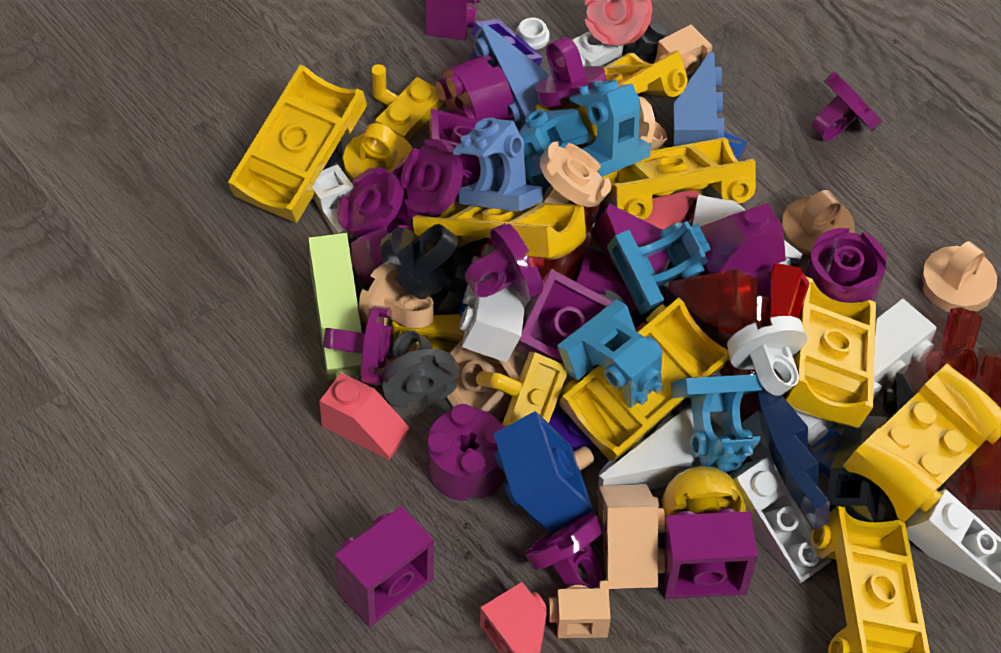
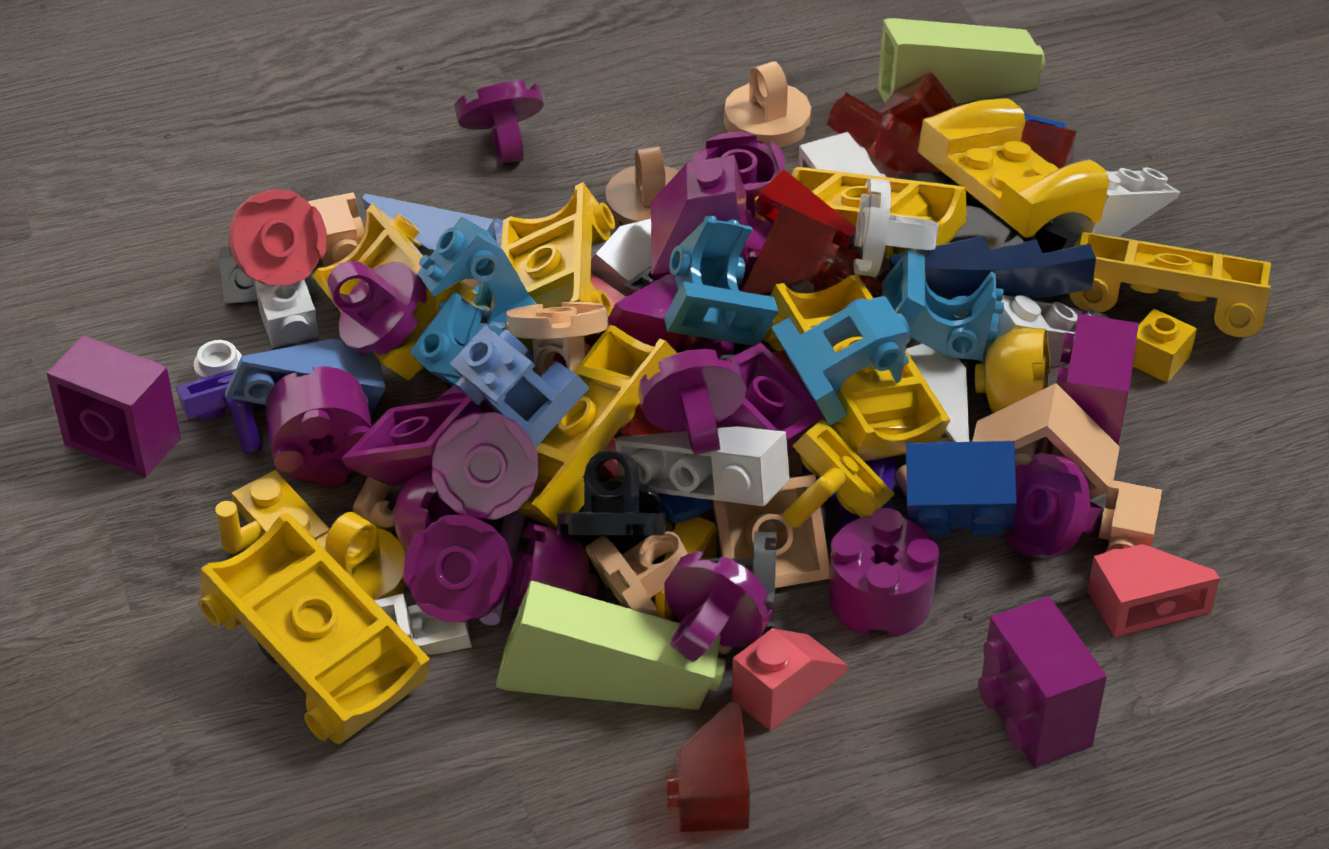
camera: 70 degrees left, 10 degrees down
(262, 394) = (712, 776): none -> clear red slope
(801, 605) = (1163, 345): none -> yellow plate

